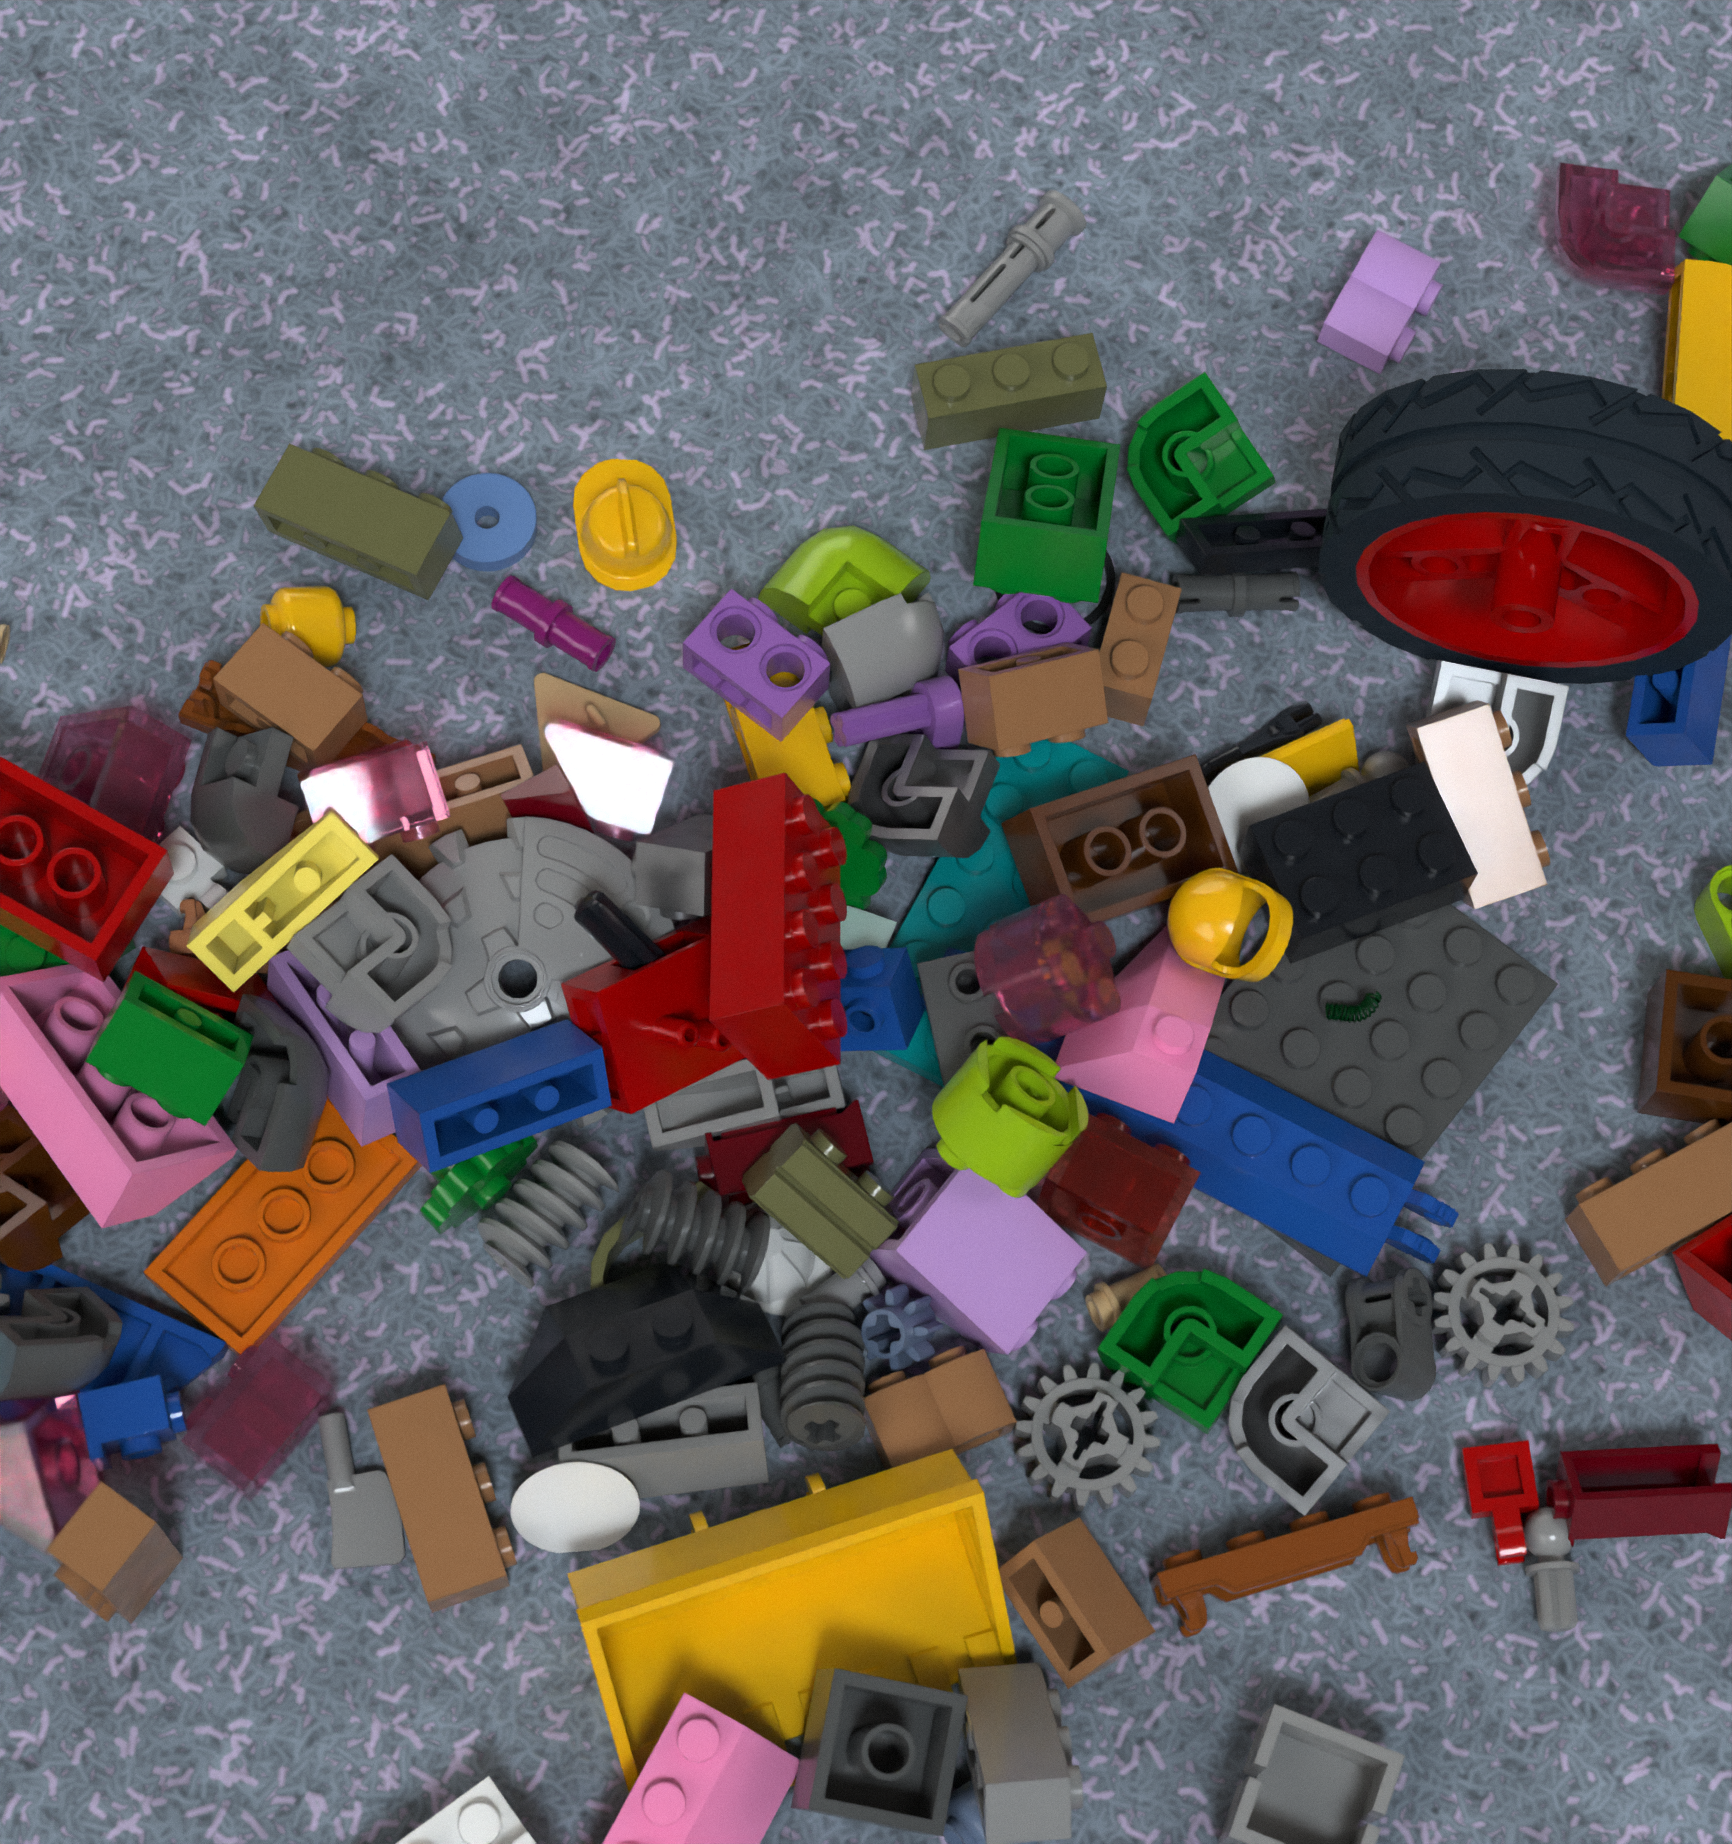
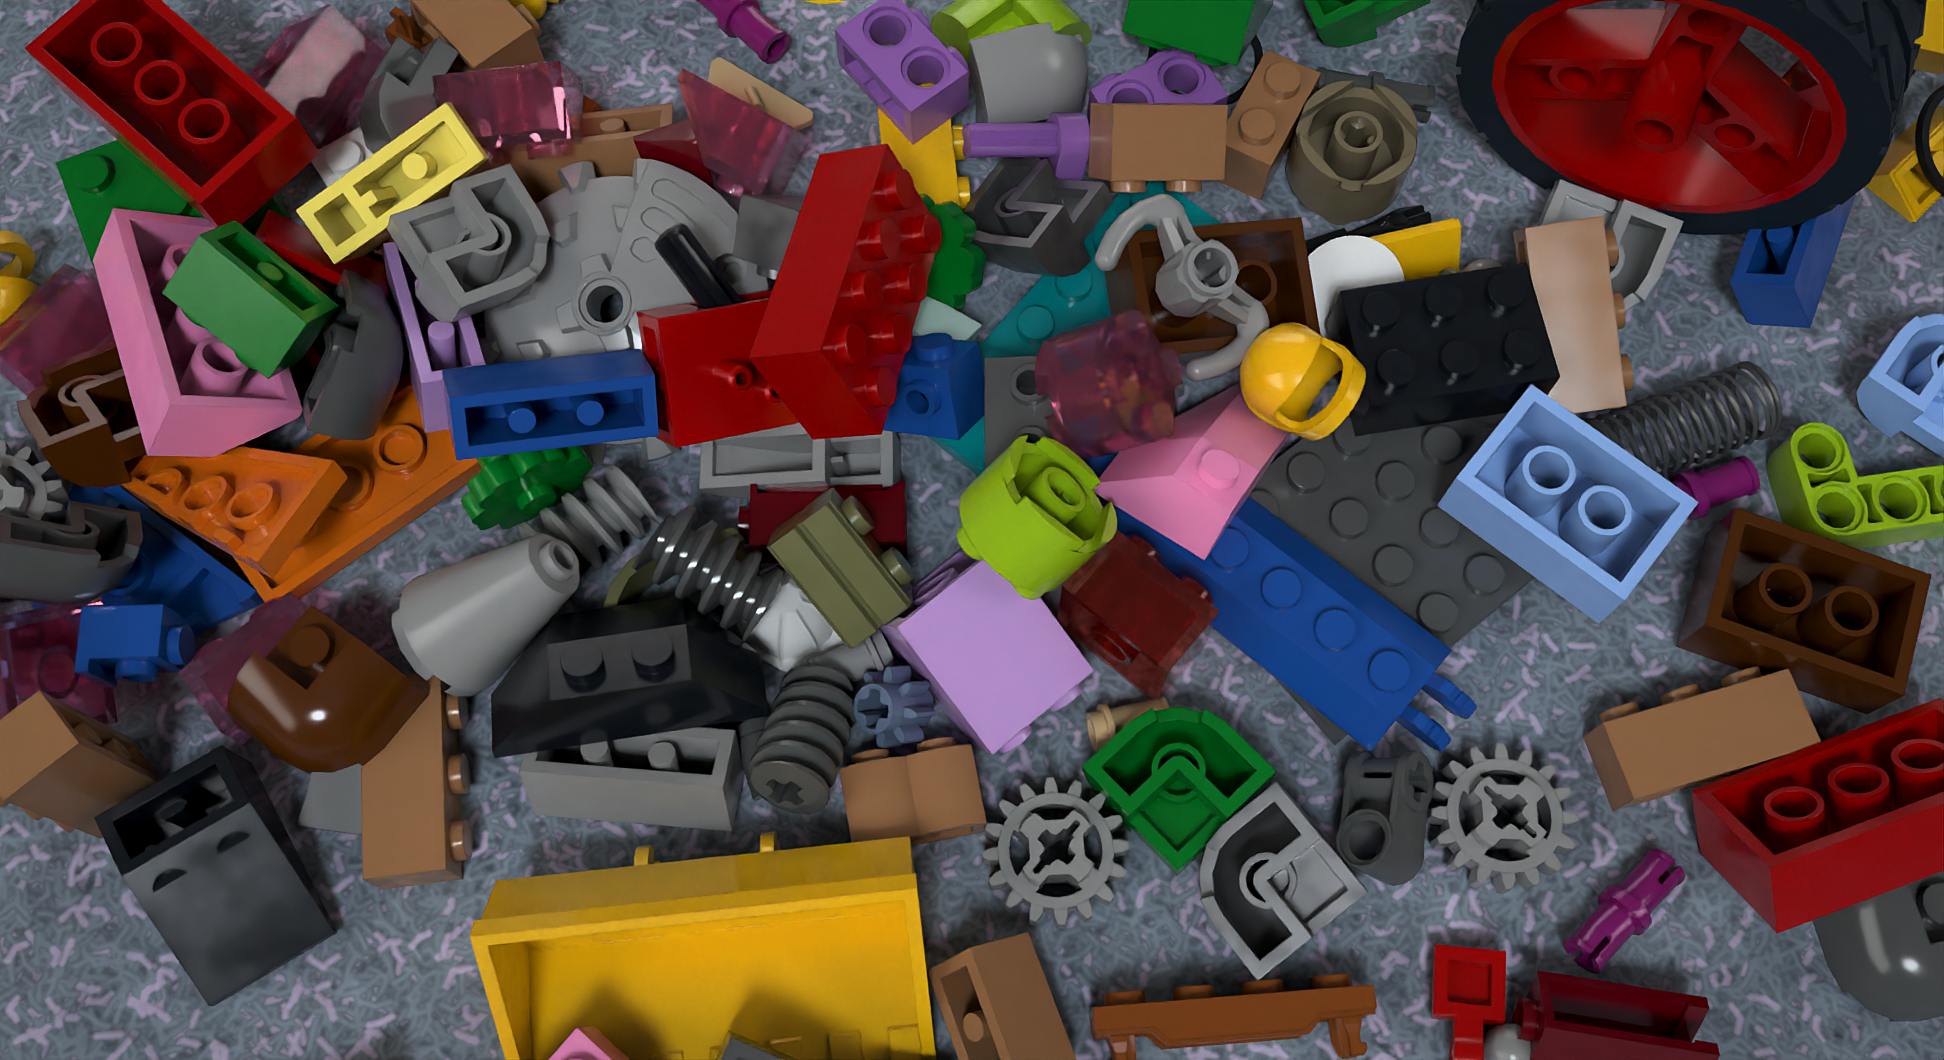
camera: 20 degrees right, 0 degrees up
(195, 1253) = (241, 500): none -> orange wing
(277, 1630) = (216, 873): none -> black slope
(345, 1434) = (322, 697): none -> reddish brown brick
(479, 1315) = (483, 611): none -> light grey cone
(575, 1507) = (533, 815): white sticker -> none
(1103, 846) = (1192, 278): none -> light grey piece
(1197, 672) = (1351, 151): none -> dark tan brick
(1253, 541) = (1394, 48): black plate -> none
(1360, 1008) = (1412, 490): dark green leg -> none
(1506, 998) = (1567, 504): none -> light blue brick
(1625, 958) = (1718, 484): none -> magenta pin
(1631, 1379) = (1624, 910): none -> magenta pin
(1652, 856) = (1772, 419): none -> dark grey piece

